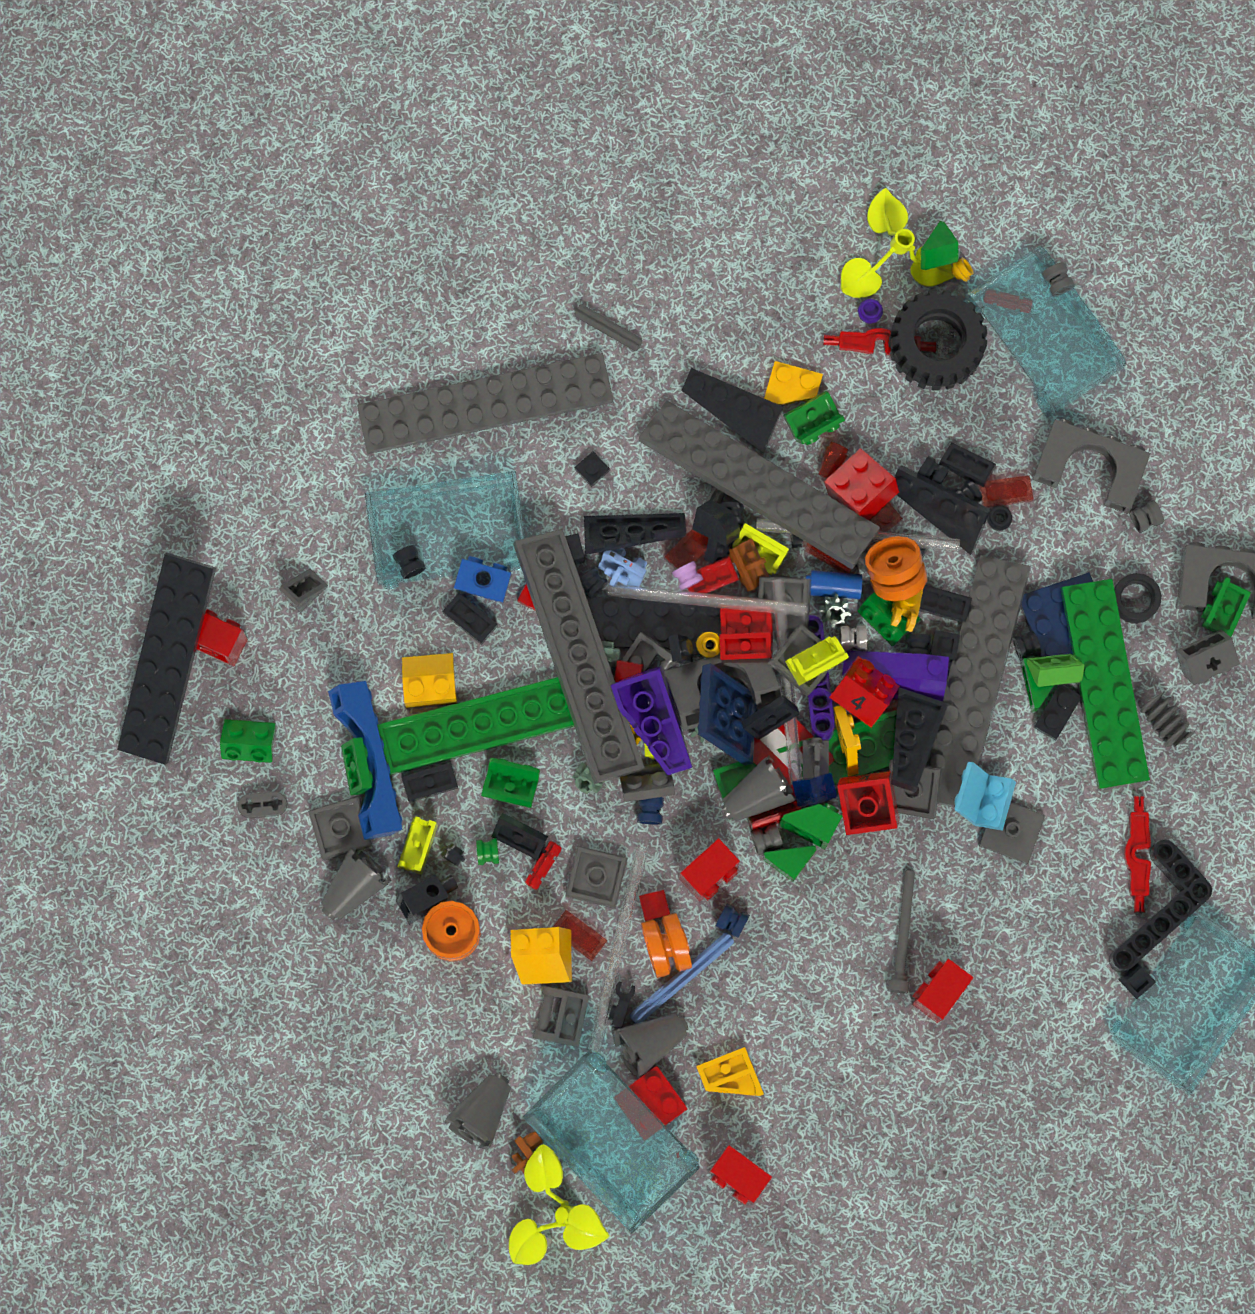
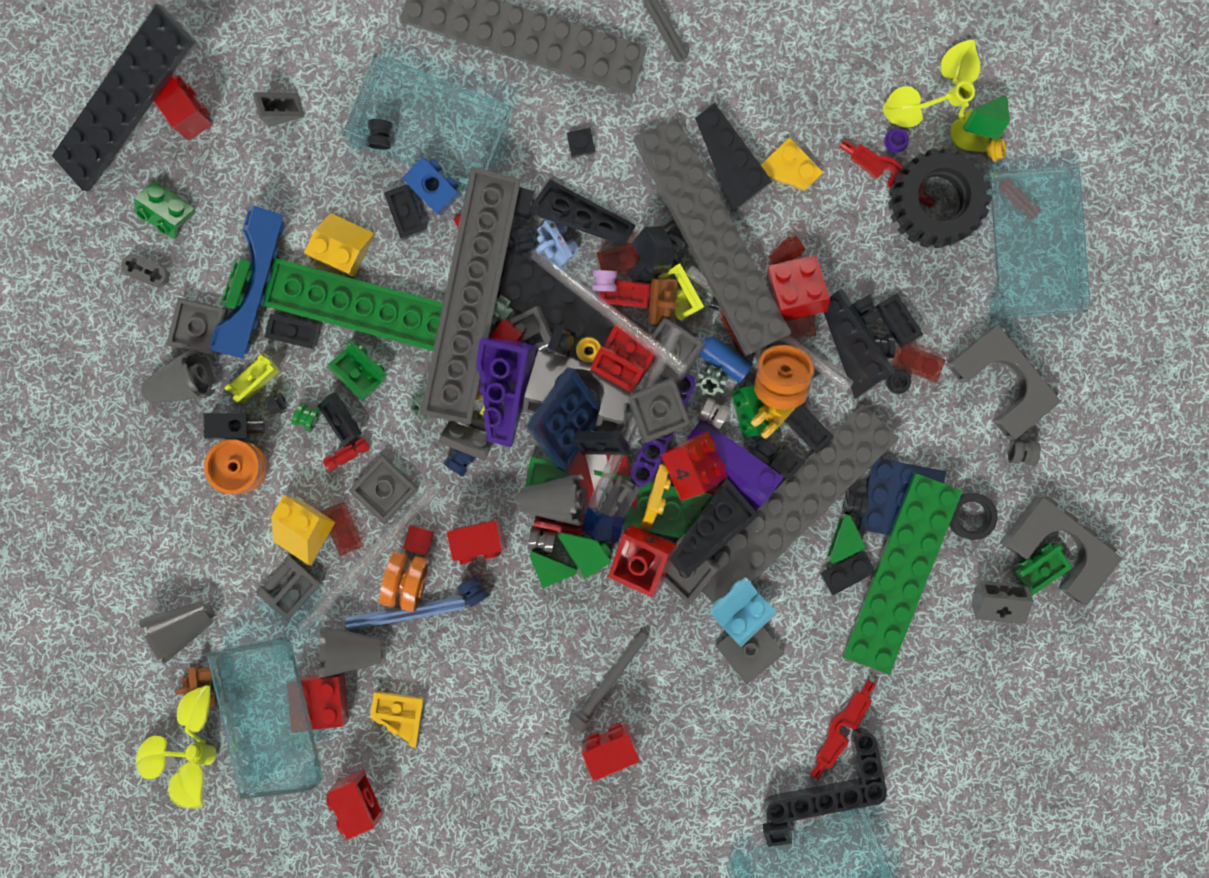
camera: 30 degrees right, 10 degrees up
(618, 1013) = (336, 612): black plate -> none
(813, 419) = (792, 206): green bracket -> none
(816, 660) = (667, 418): neon yellow hinge -> none
(1055, 670) = (867, 539): bright green slope -> none
(1058, 279) = (1076, 204): dark grey wheel -> none
(1167, 720) = (935, 635): dark grey piece -> none

